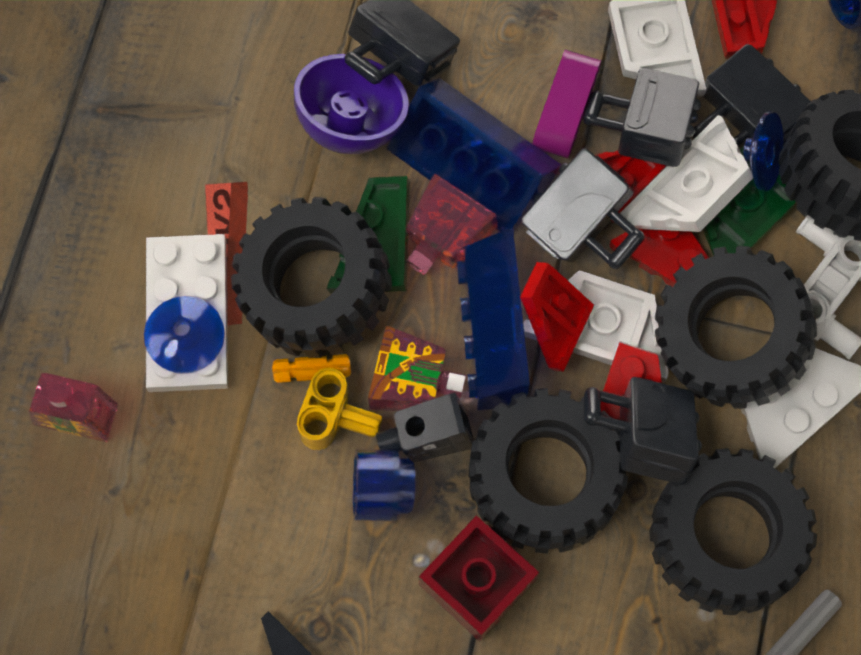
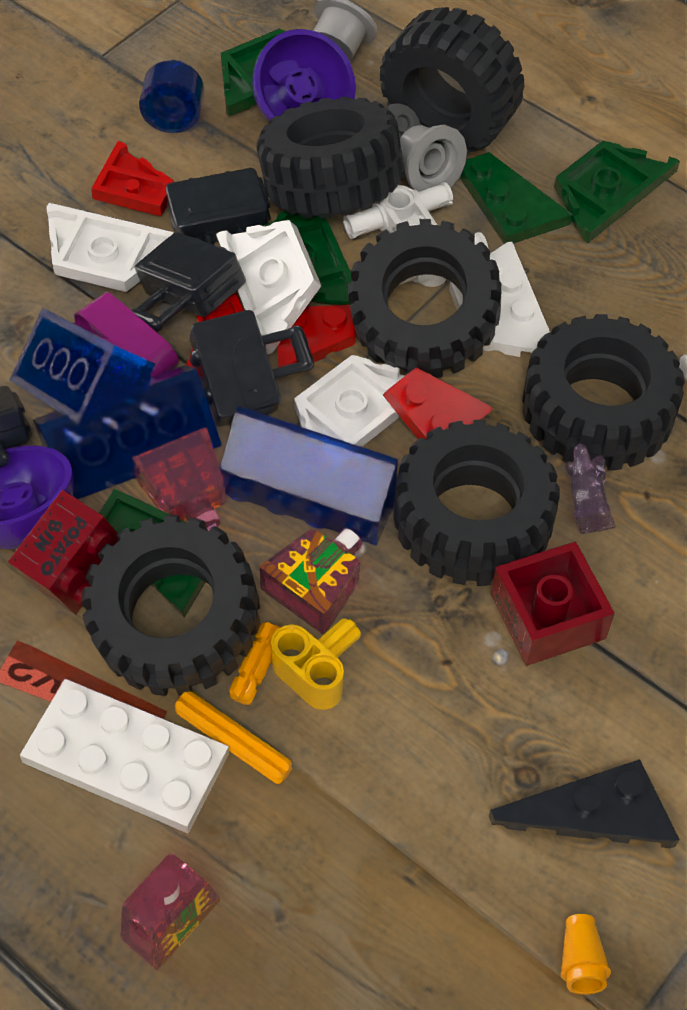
camera: 65 degrees left, 15 degrees down
(186, 352) = (158, 777): clear blue dish -> none
(238, 384) = (228, 732): none -> light orange axle
(317, 169) = (62, 549): none -> dark red brick
(382, 485) = (416, 646): clear blue piece -> none
(444, 427) = (384, 577): black torso -> none
(494, 86) = (79, 370): none -> clear blue slope
(556, 313) = (332, 418): red wing -> none
(613, 564) = (589, 492): none -> clear purple animal
(654, 428) = (491, 389): black piece -> none
(764, 150) = (275, 208): clear blue dish -> none

